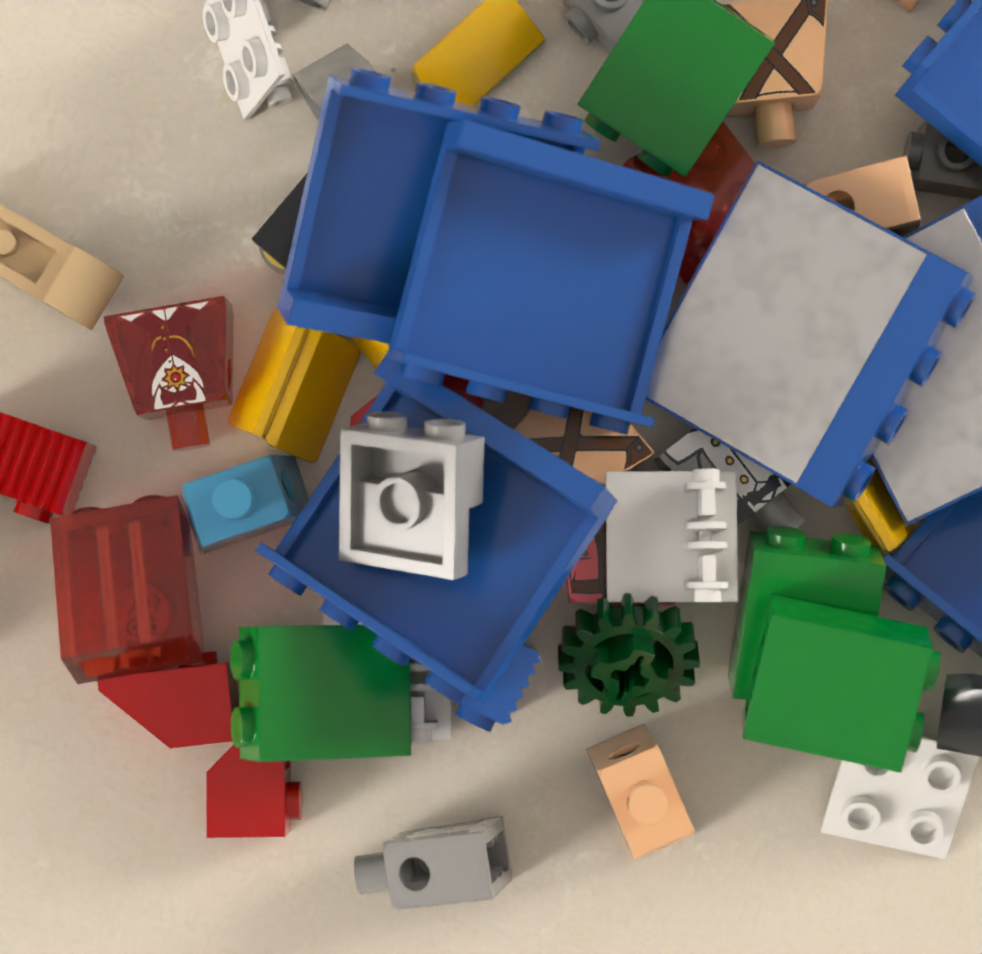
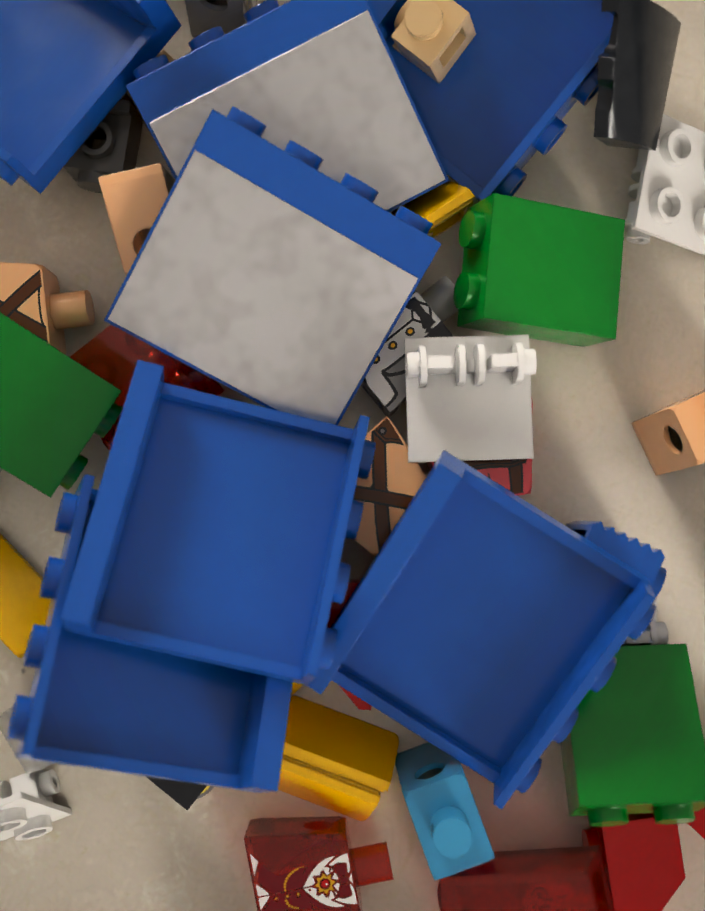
camera: 90 degrees left, 0 degrees up
(409, 494) = (443, 658): light grey plate -> none
(628, 655) = (578, 437): dark green gear -> none
(839, 683) = (608, 235): green brick -> none

